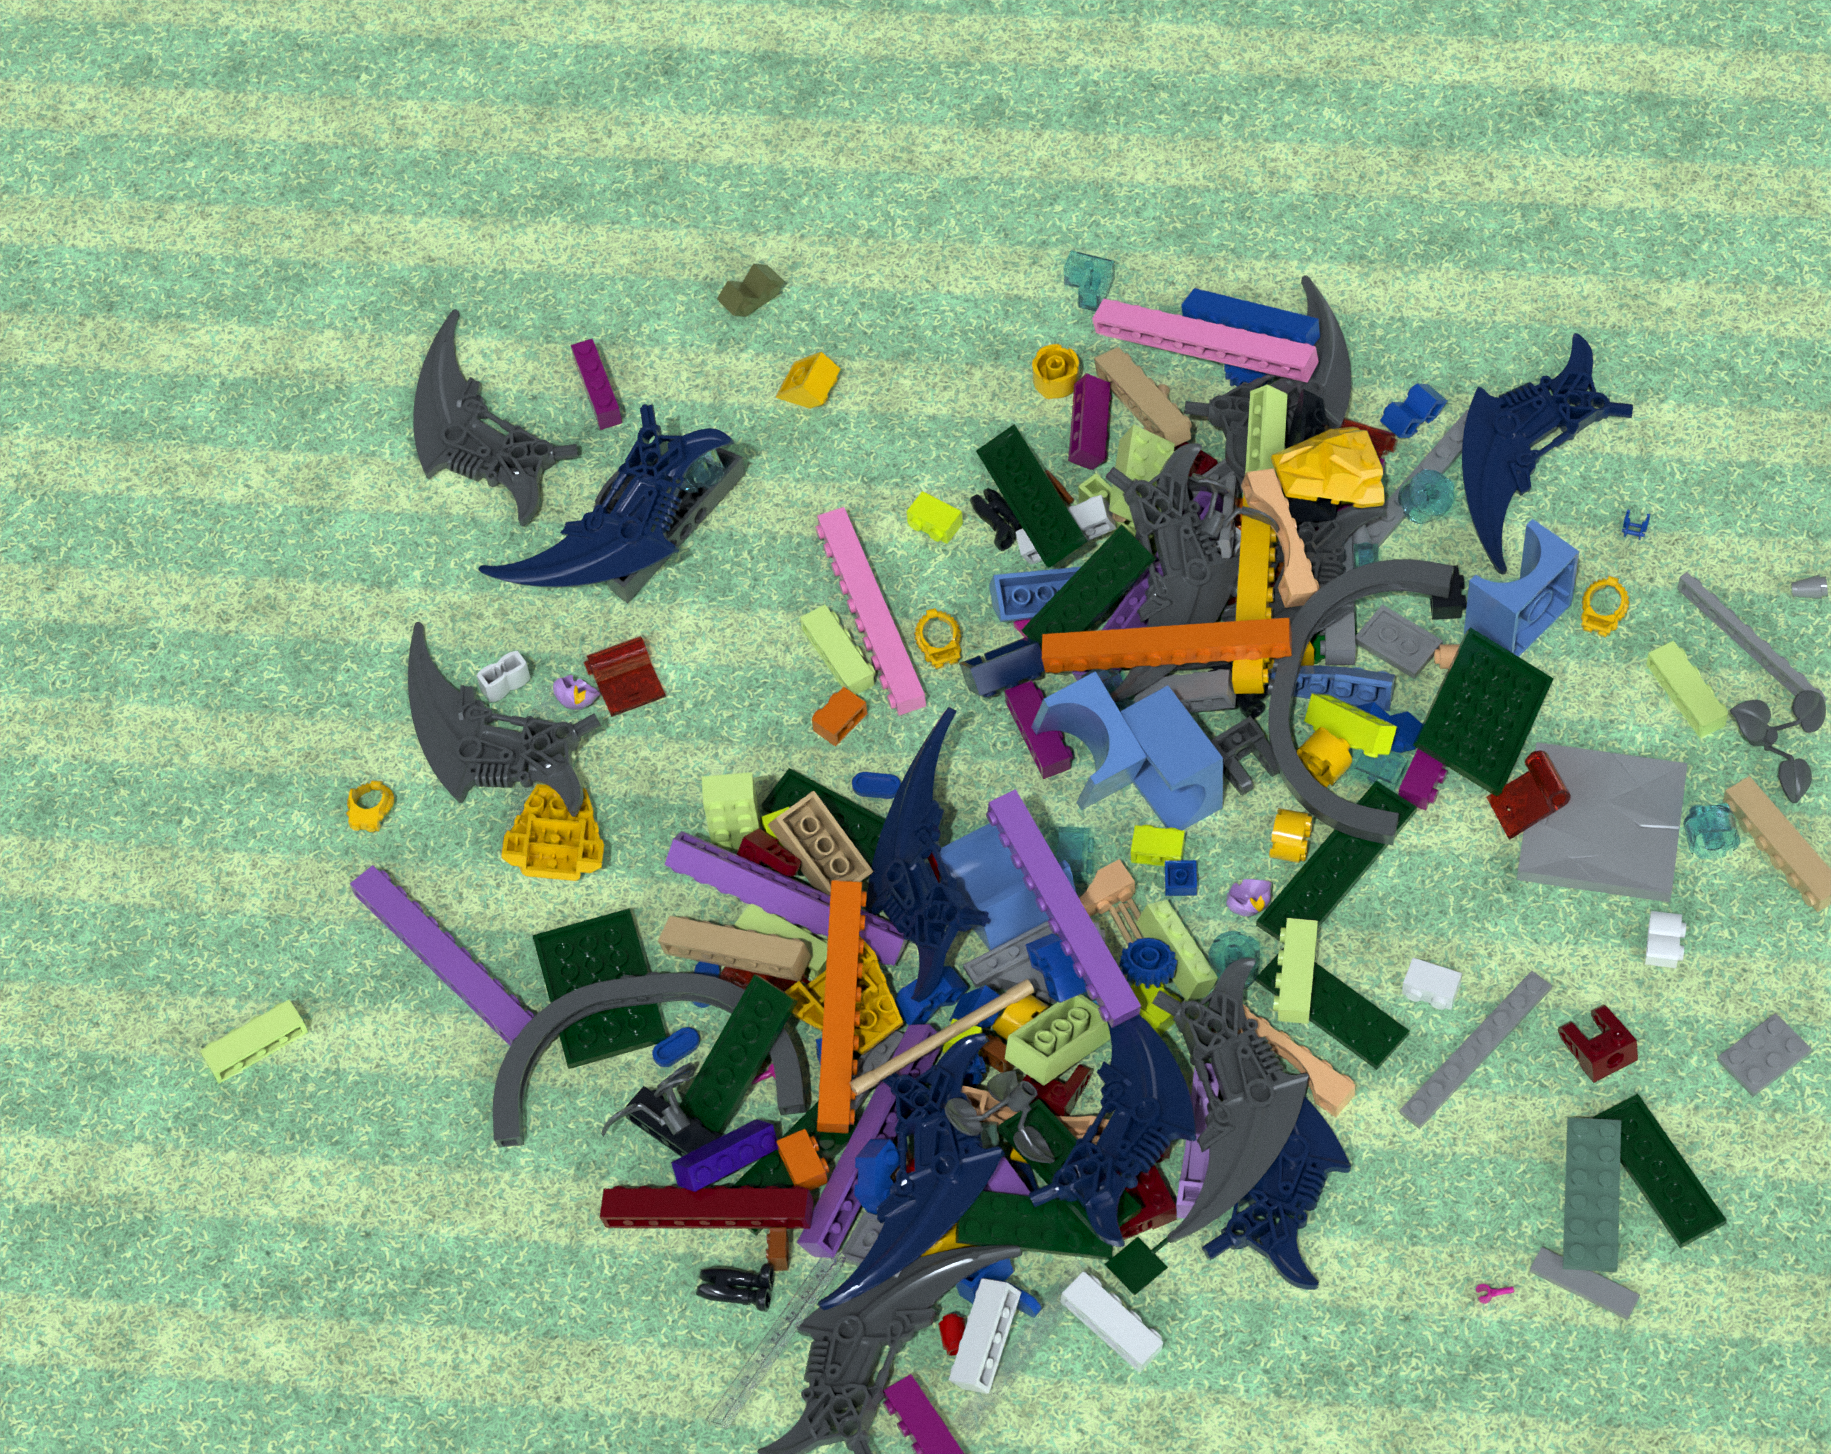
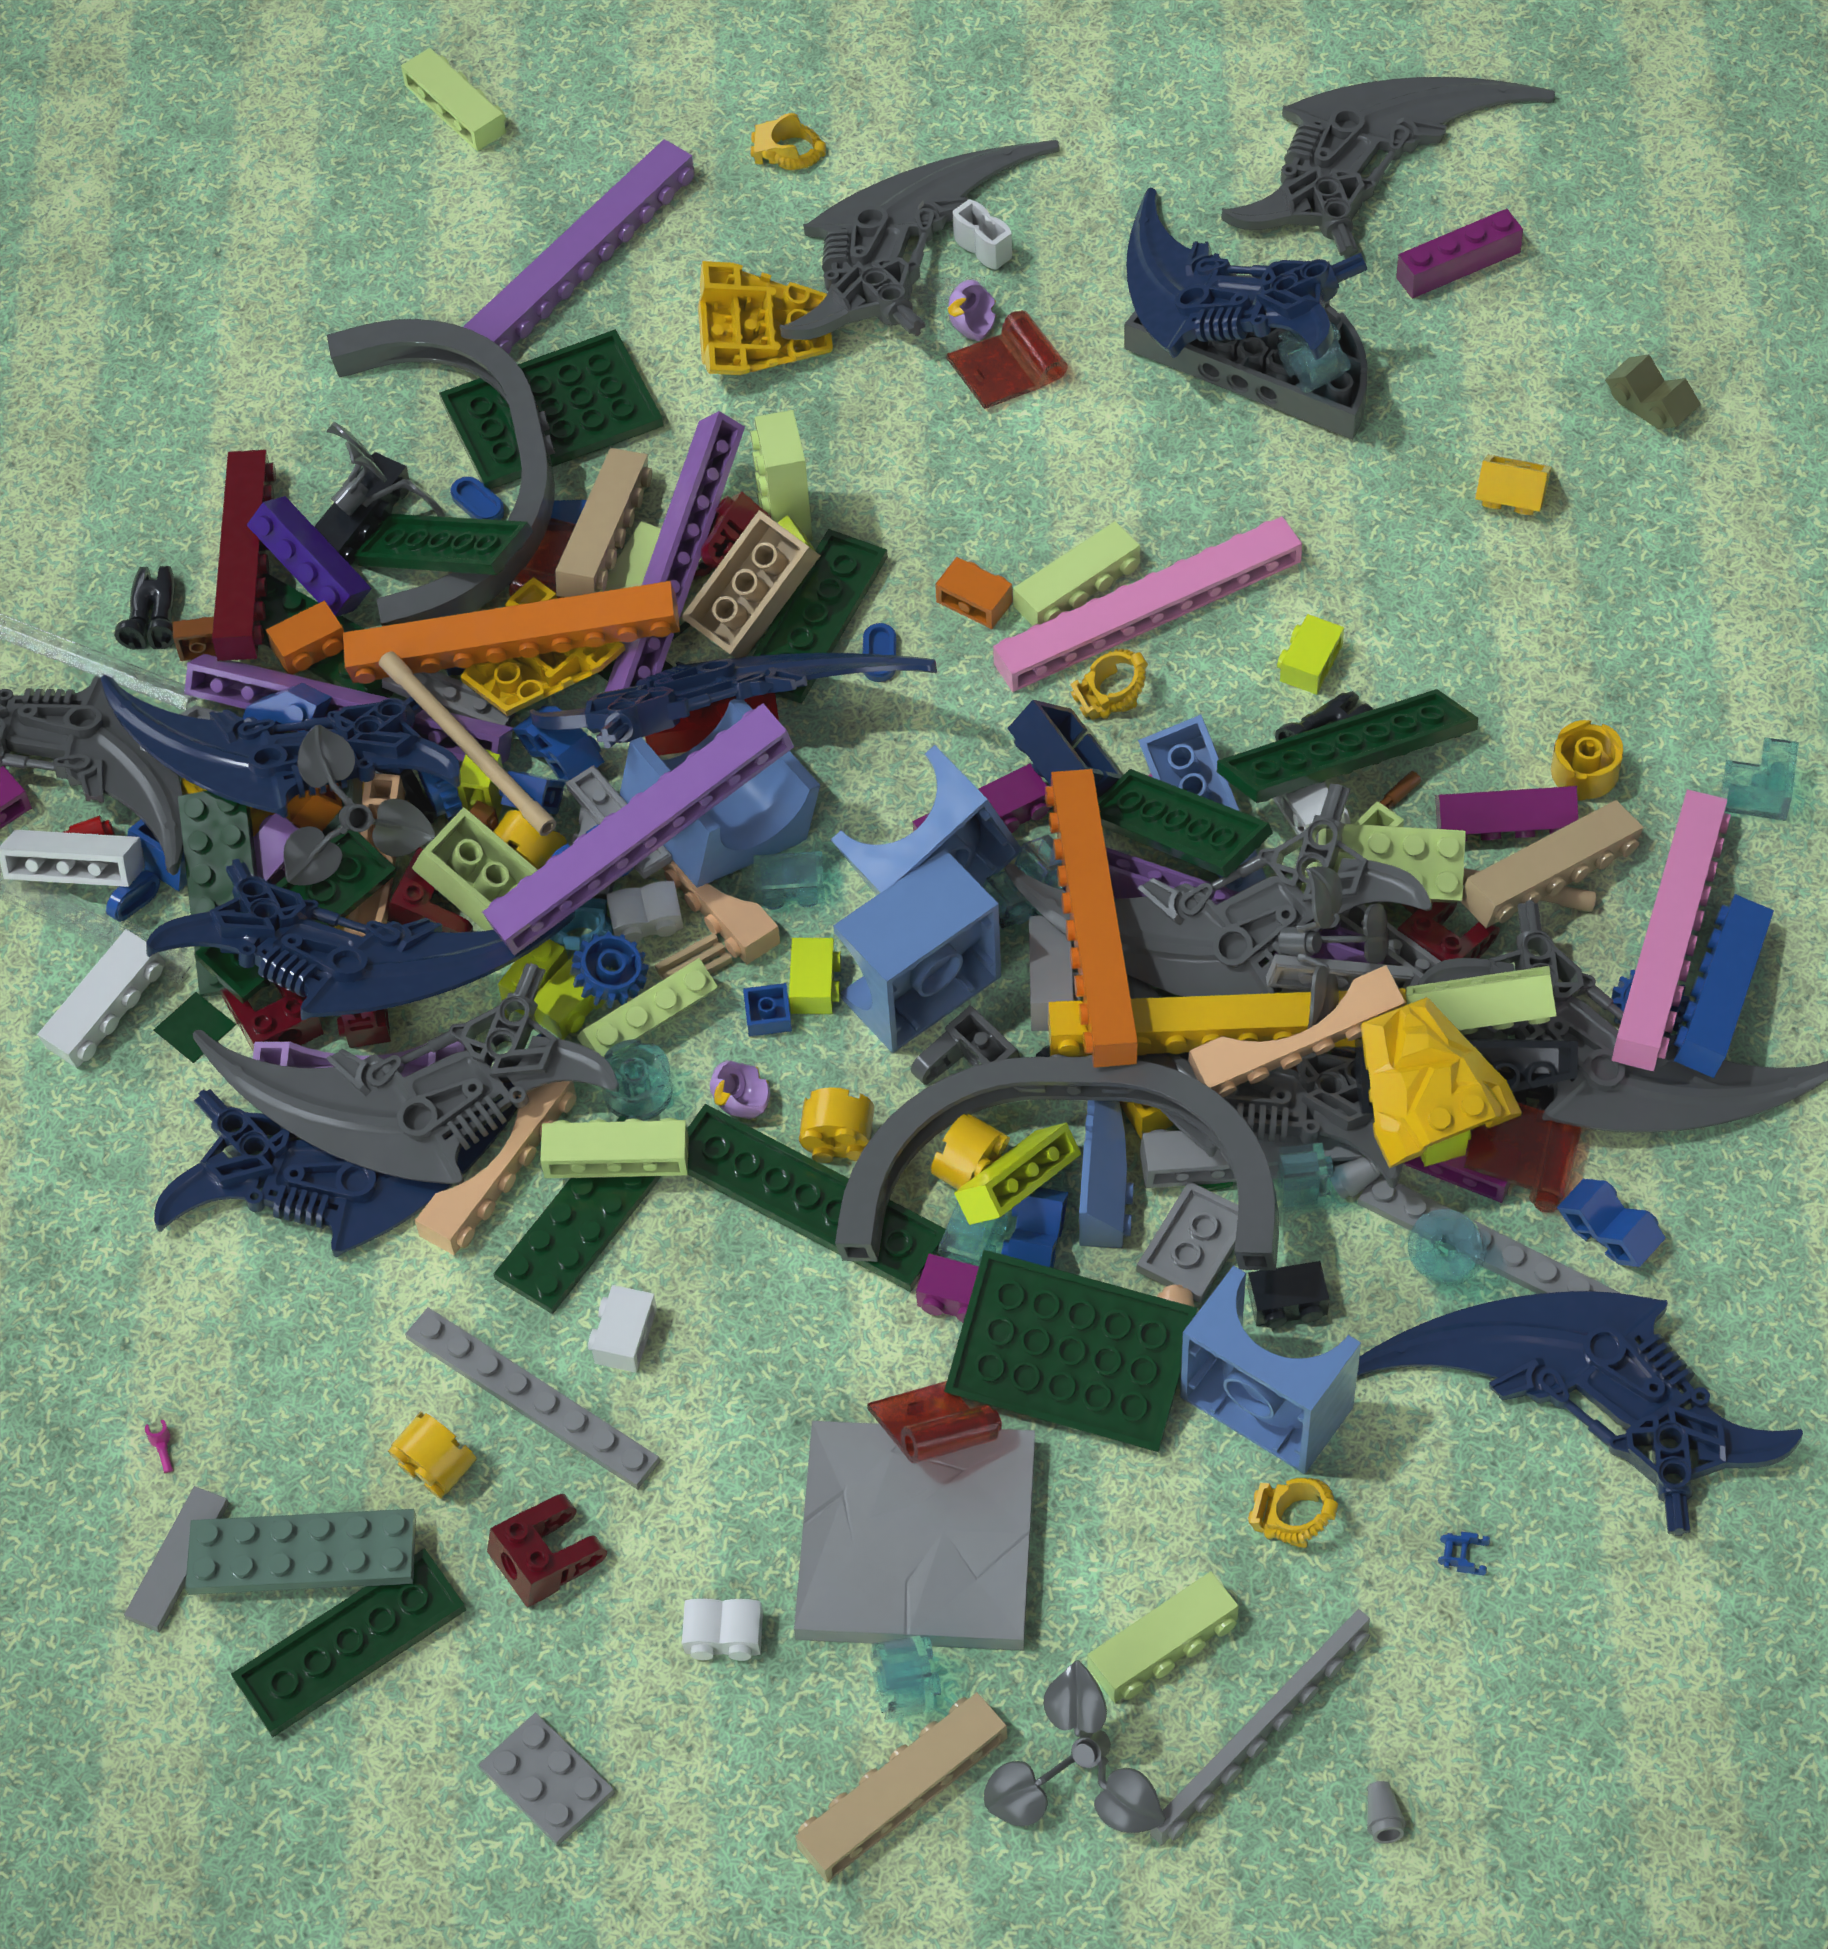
camera: 80 degrees right, 0 degrees up
(1524, 1104) = (431, 1454): none -> yellow brick

